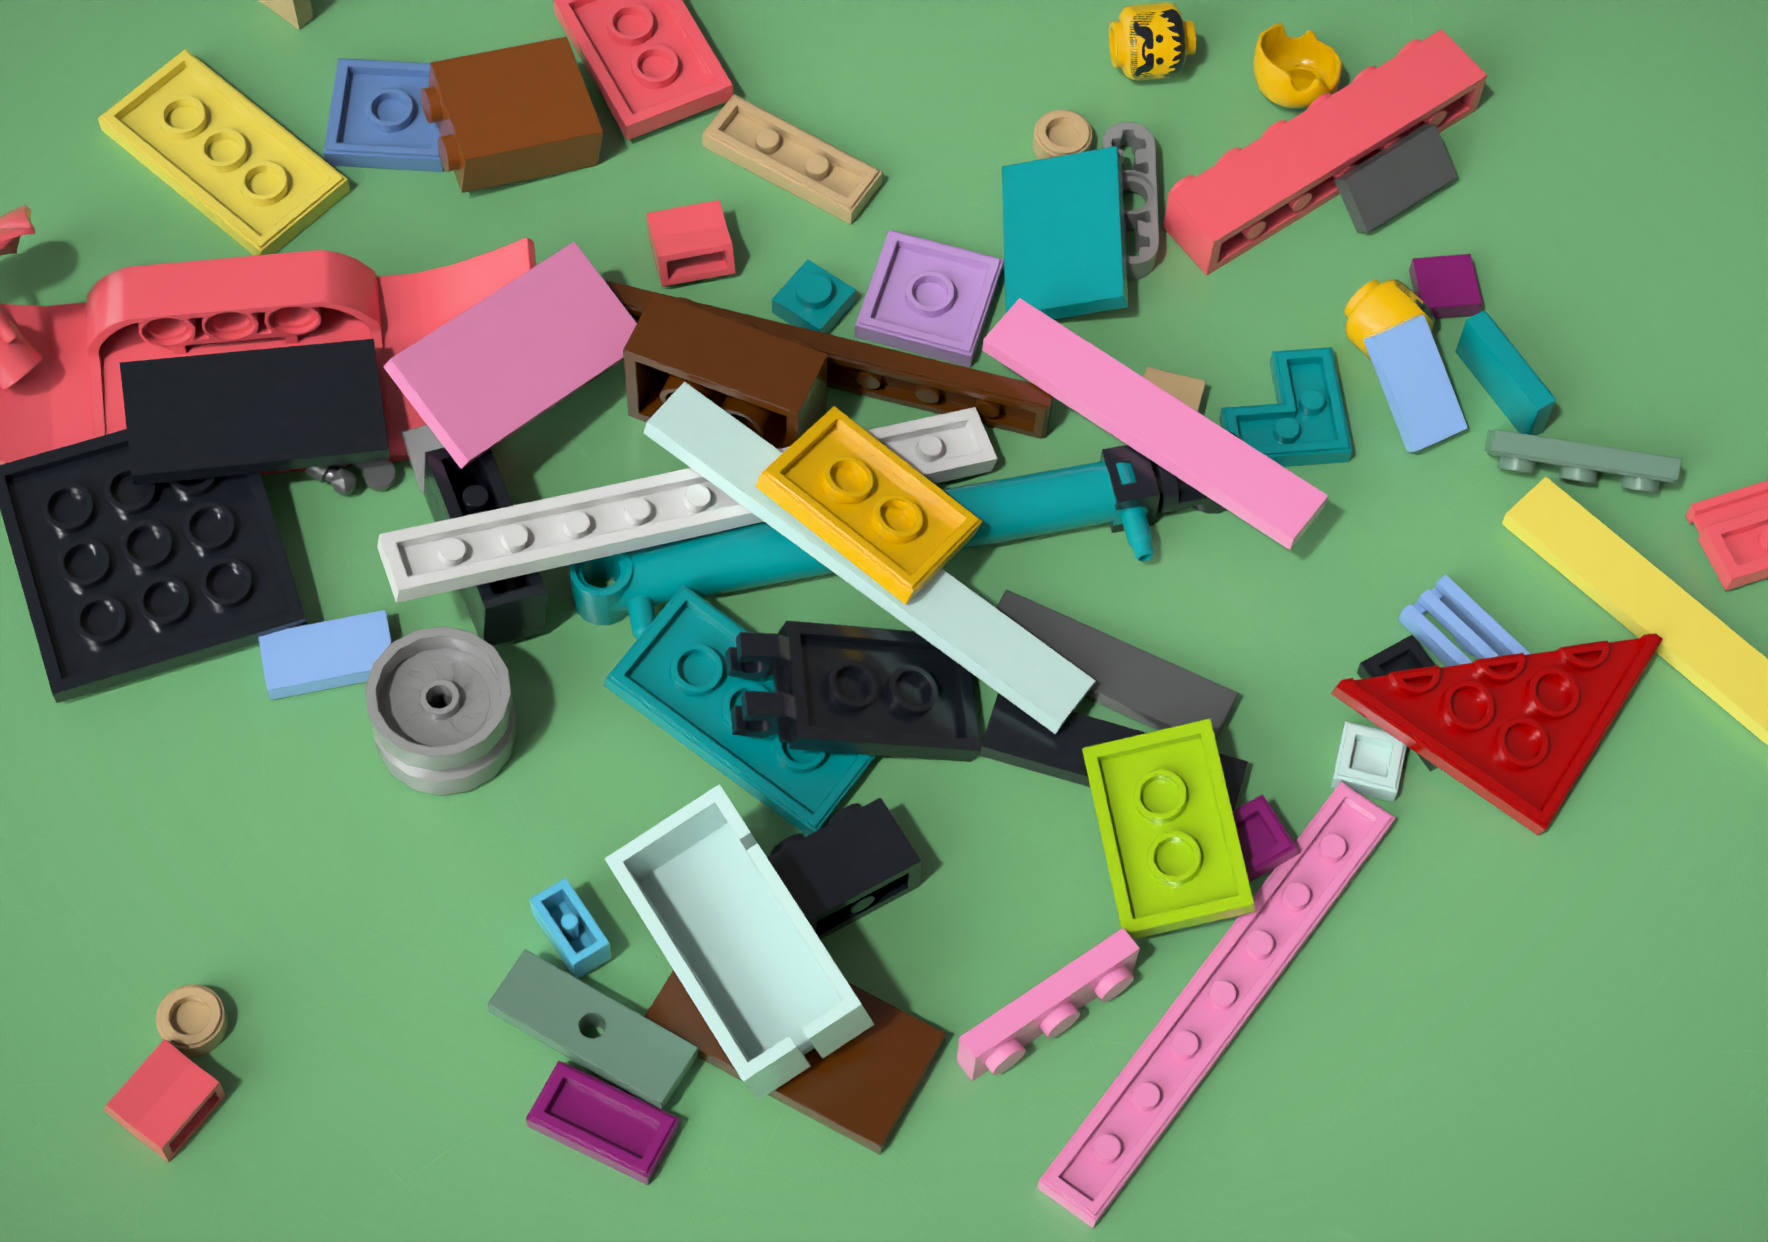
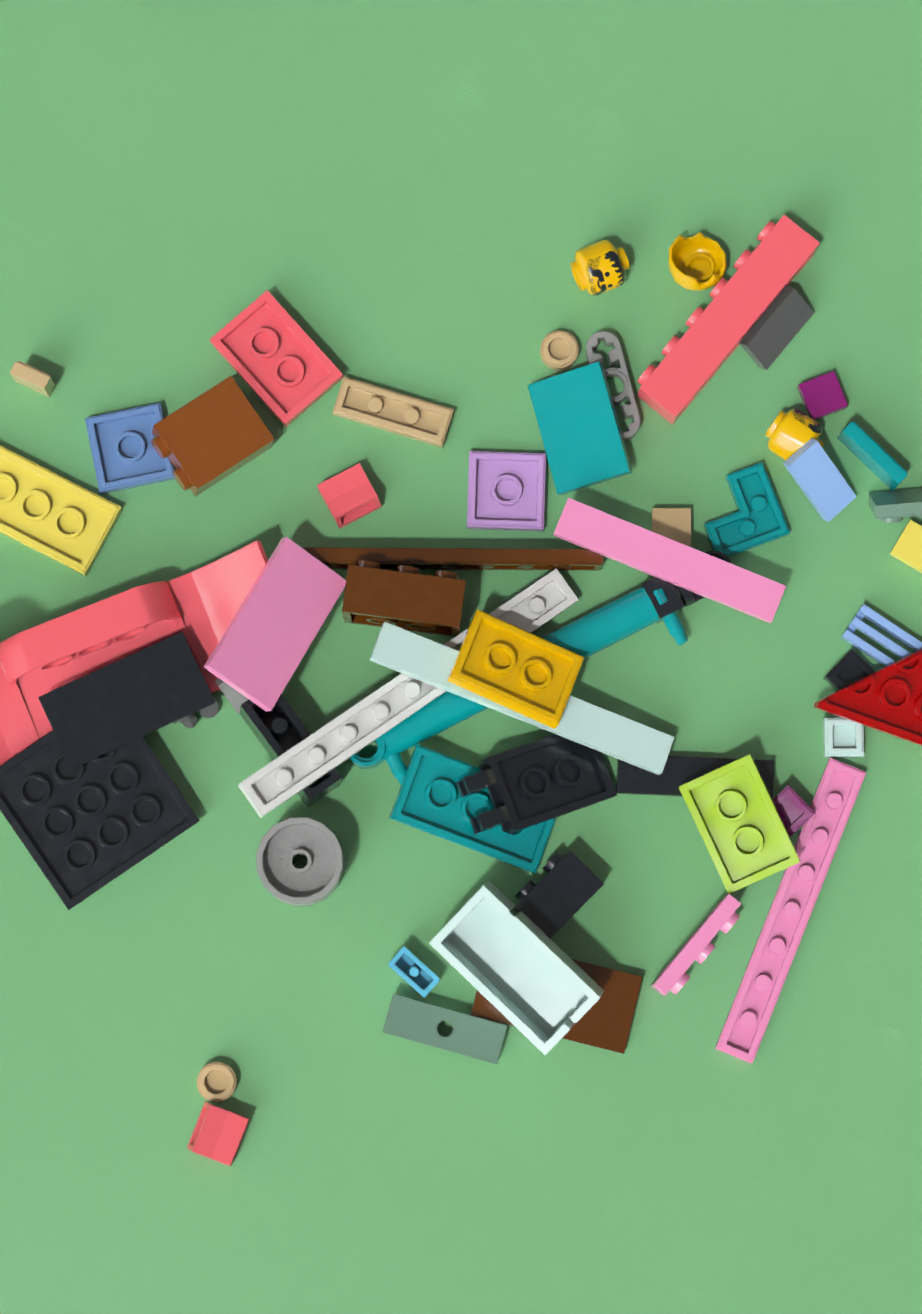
camera: 15 degrees left, 20 degrees up
(323, 654) = (217, 835): light blue tile -> none
(603, 1122) = (465, 1078): magenta tile -> none
(813, 299) = (435, 513): teal plate -> none
(1124, 675) = (685, 720): dark grey tile -> none

